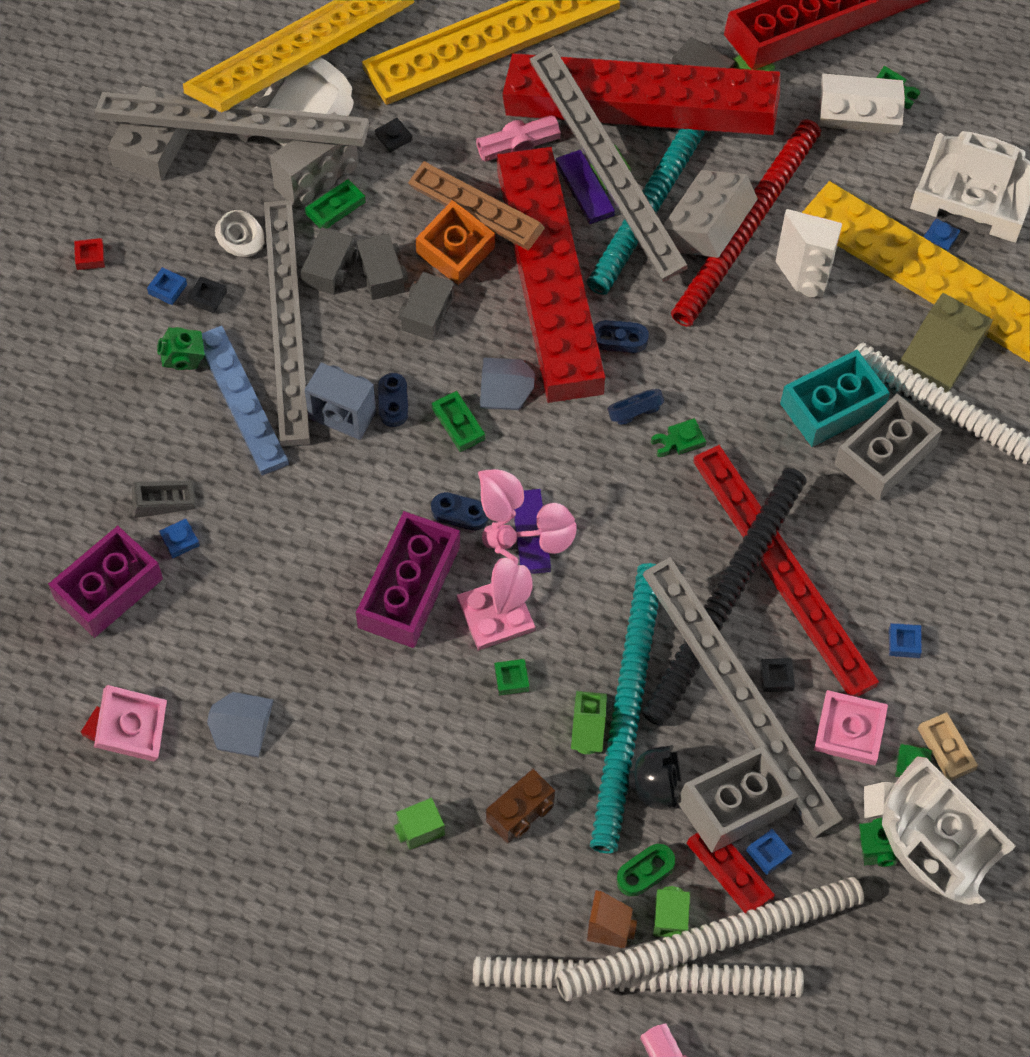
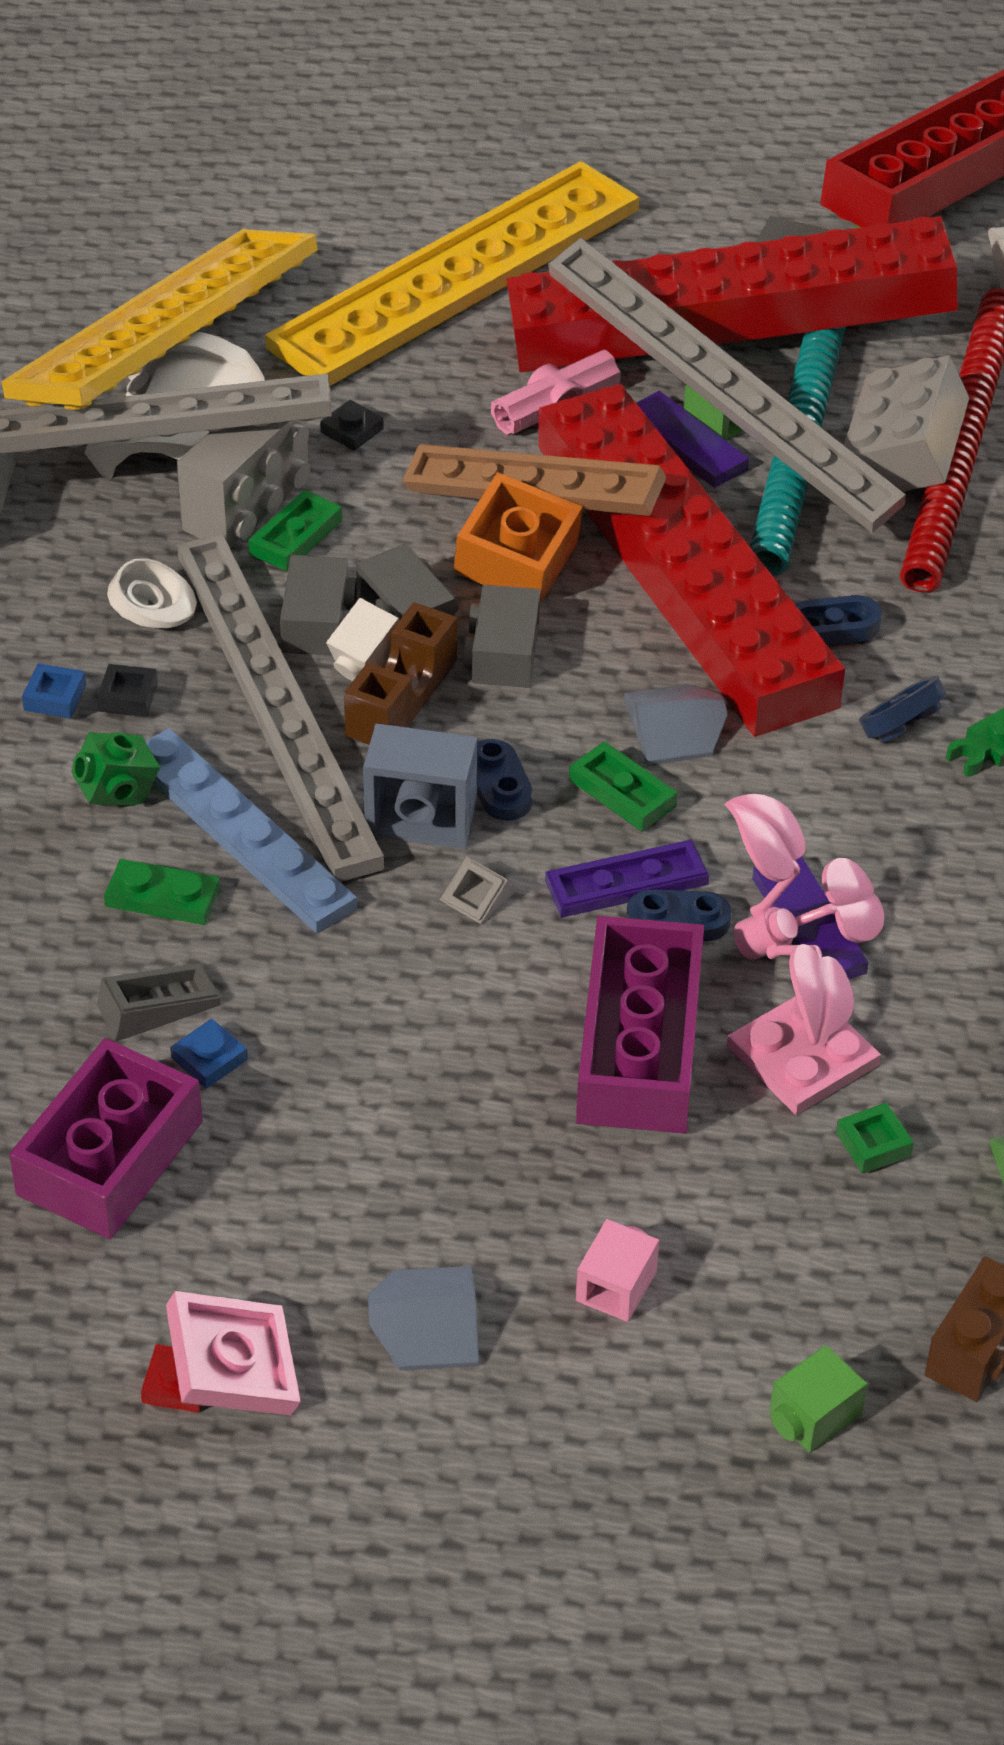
camera: 15 degrees left, 15 degrees down
(186, 430) = (162, 891): none -> green plate
(345, 722) = (617, 1269): none -> bright pink brick
(346, 295) = (362, 639): none -> white brick
(356, 469) = (477, 891): none -> light grey slope
(373, 310) = (418, 661): none -> reddish brown arch
(437, 480) = (620, 877): none -> dark purple tile

